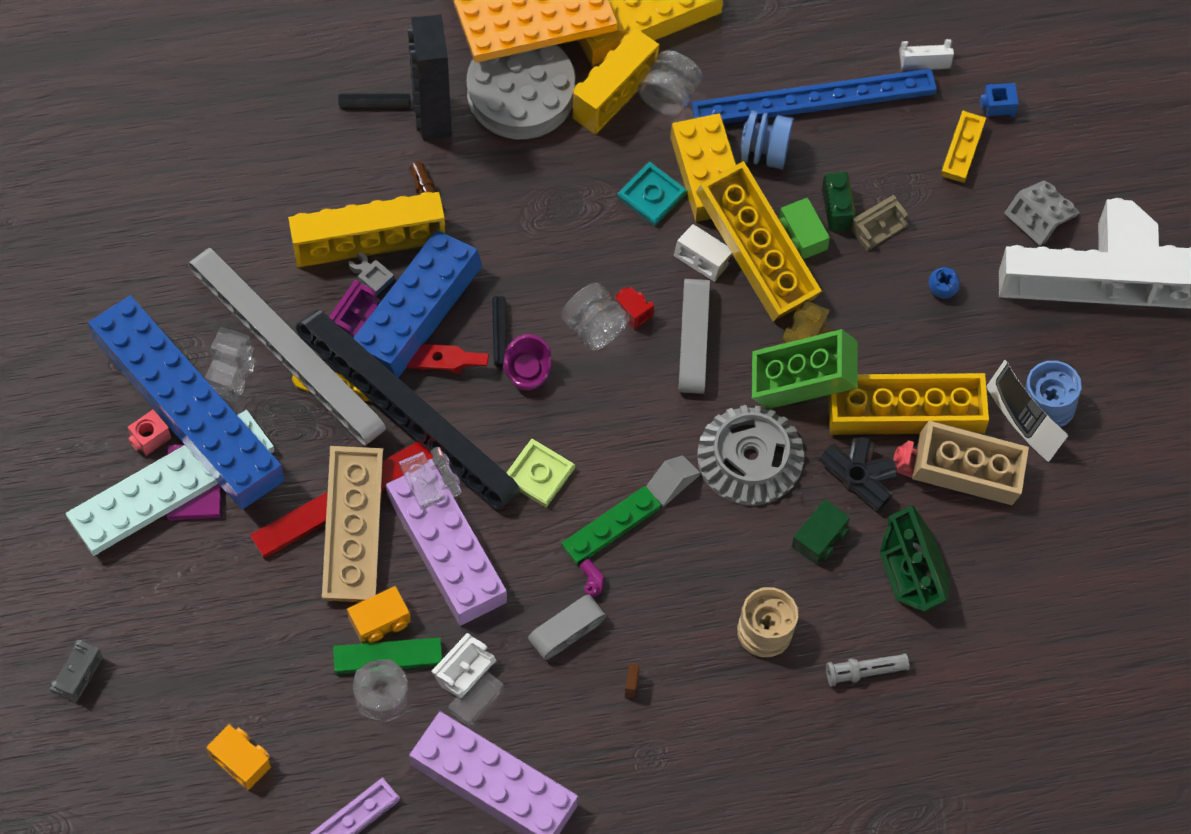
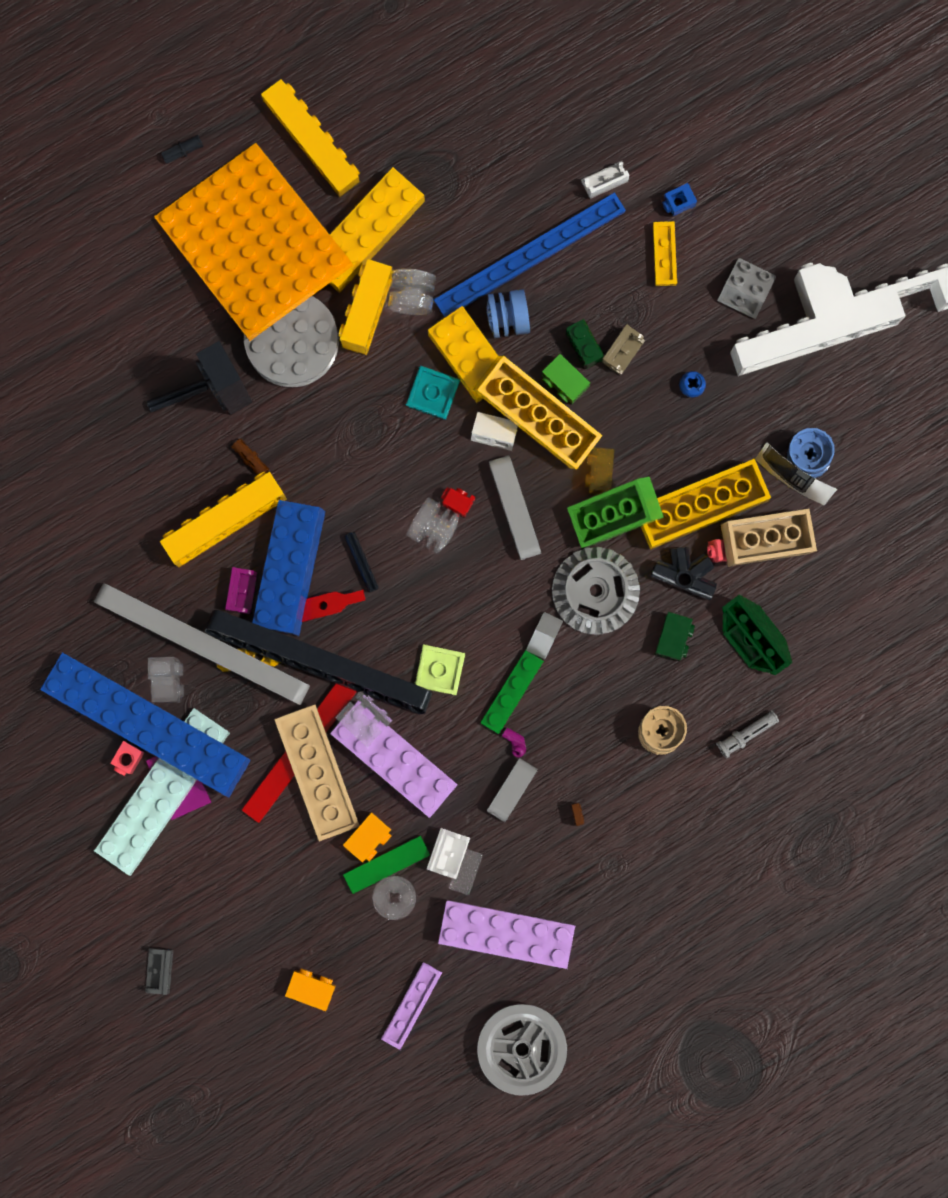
camera: 20 degrees left, 20 degrees up
(372, 275) = (243, 553): light grey plate -> none
(527, 362) = (396, 585): magenta piece -> none

